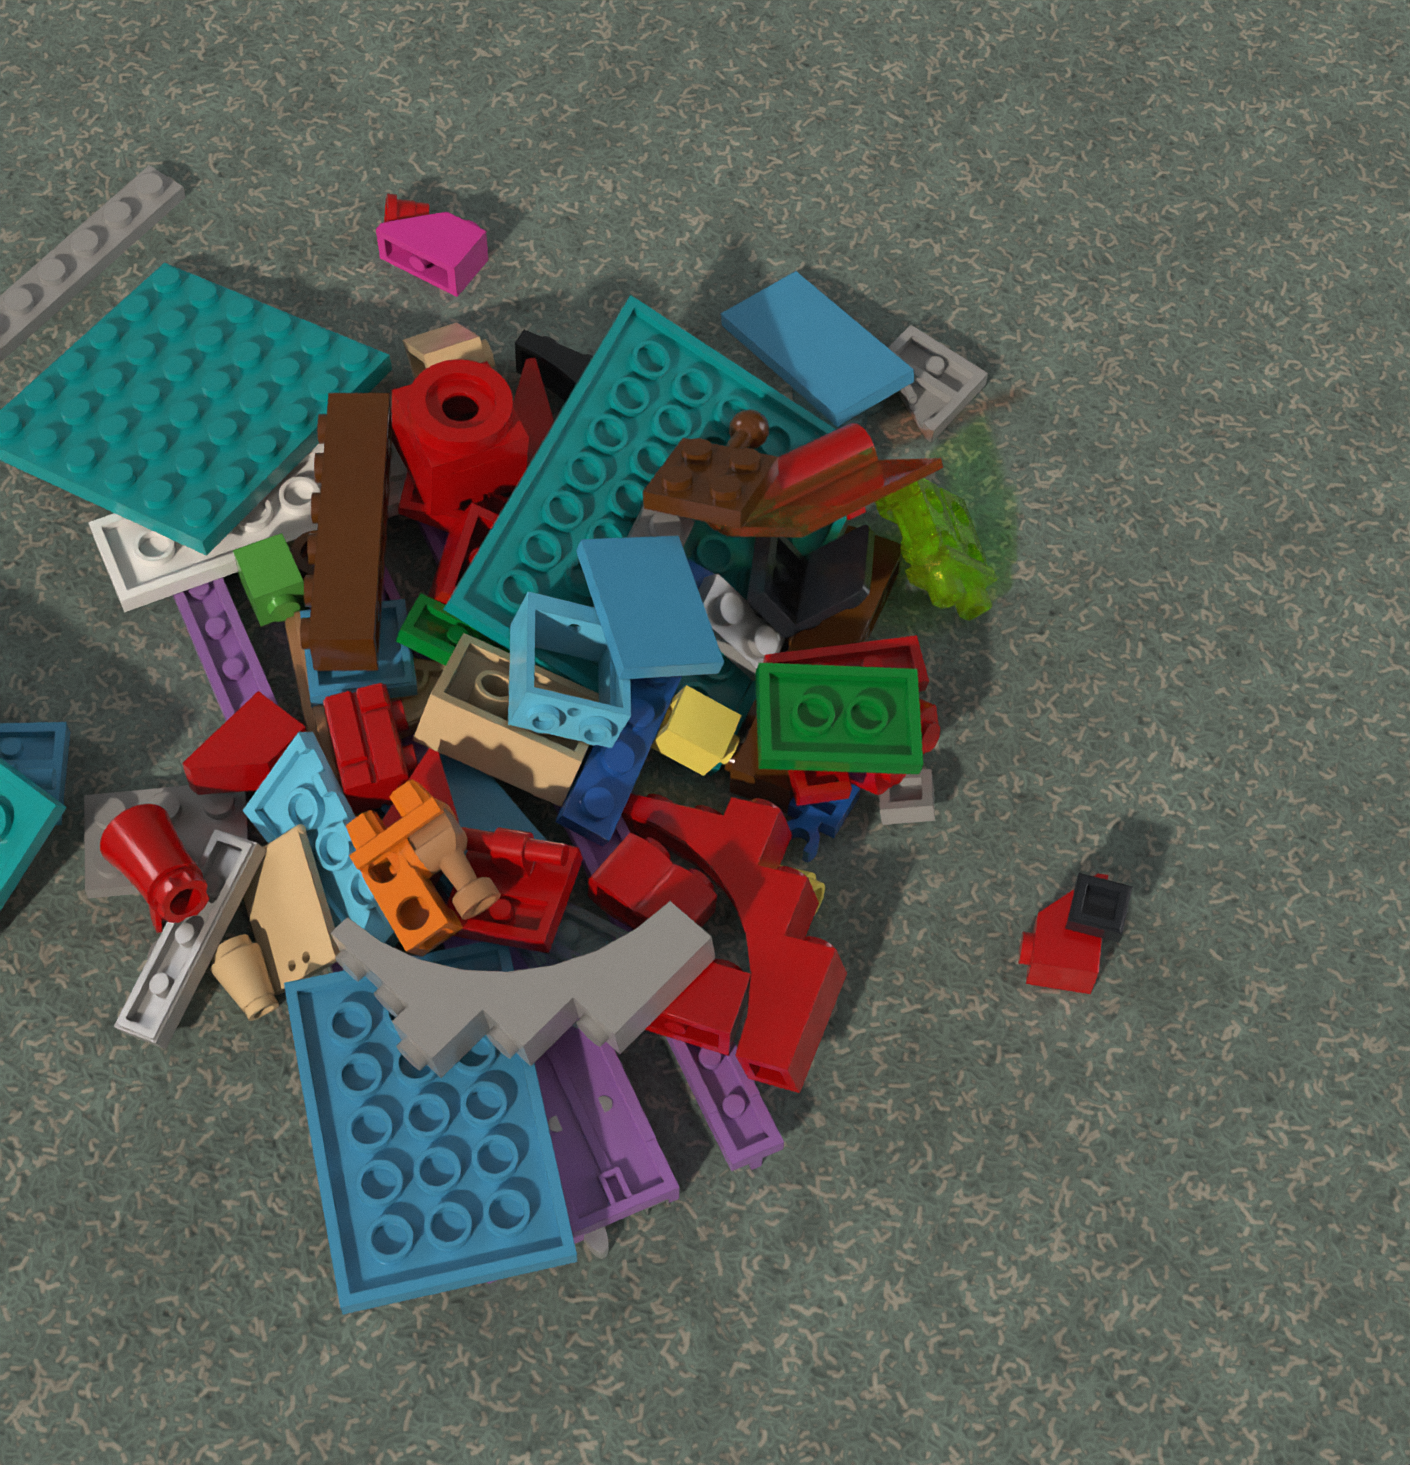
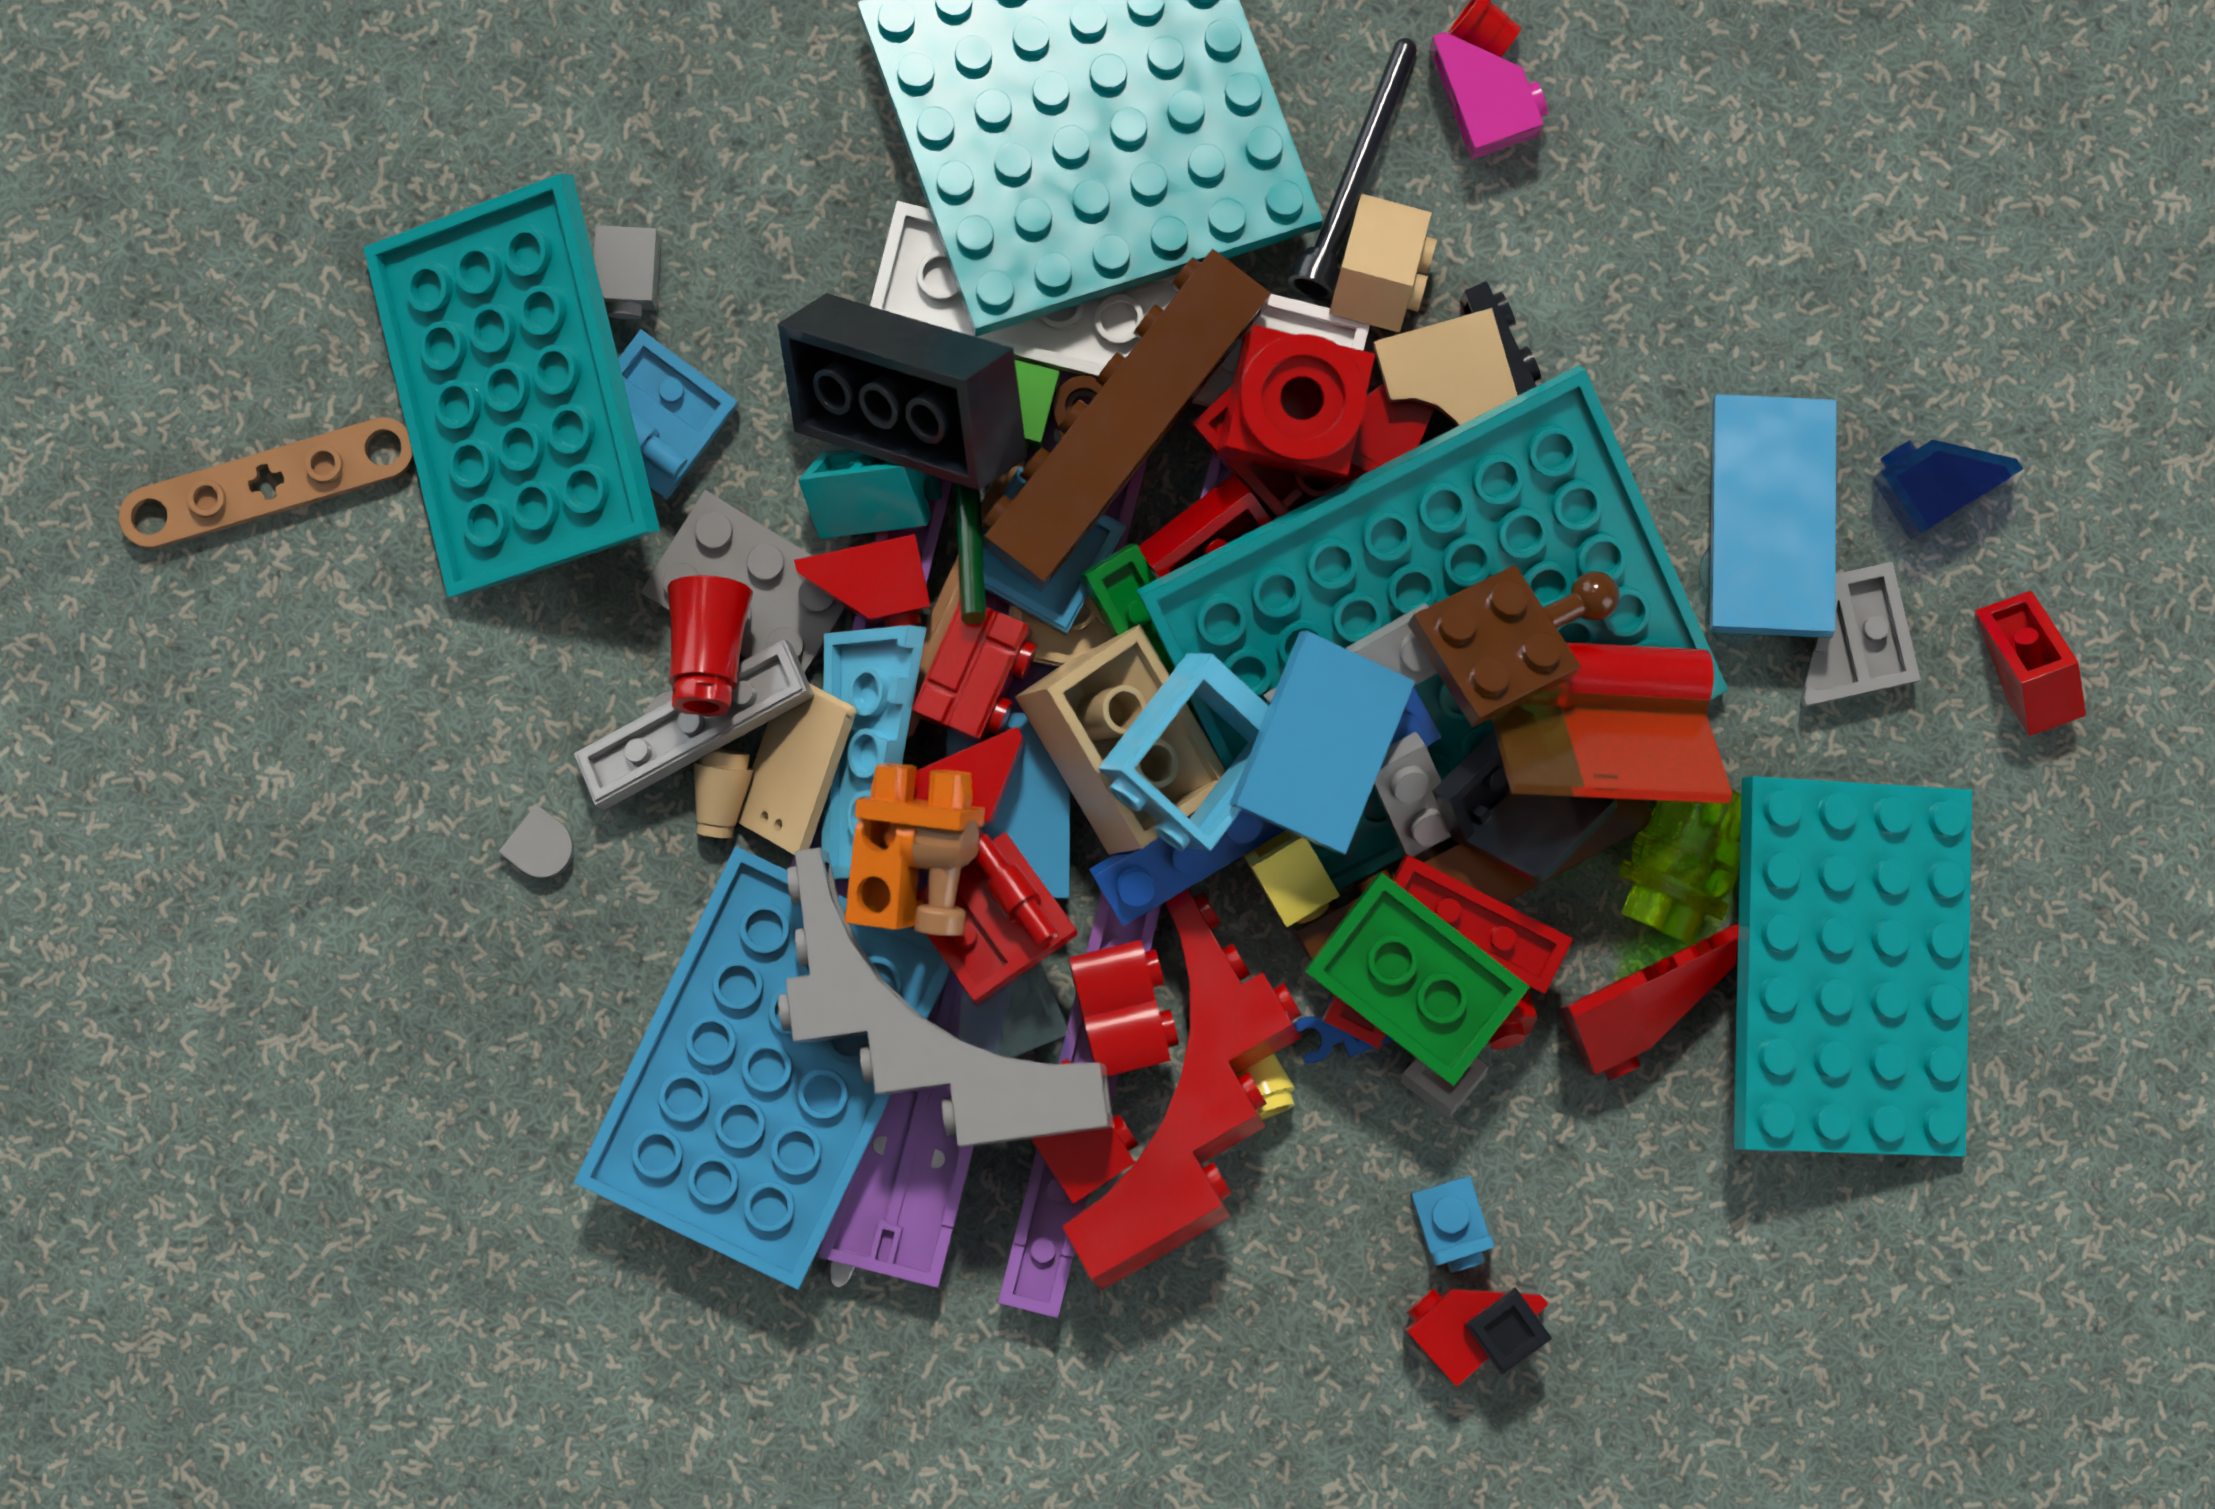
camera: 40 degrees right, 25 degrees up
(134, 1113) = (540, 845): none -> light grey tile
(179, 606) = (903, 390): none -> black brick
(205, 702) = (865, 494): none -> teal hinge
(287, 655) = (970, 554): none -> dark green bar
(386, 323) = (1318, 269): none -> black piece
(543, 378) = (1448, 366): none -> tan tile
(896, 269) = (1938, 480): none -> clear blue slope
(992, 660) = (1642, 1007): none -> red wedge
(997, 888) = (1453, 1224): none -> dark azure bracket
(1046, 323) = (2032, 663): none -> red slope
(1104, 548) = (1853, 967): none -> teal plate

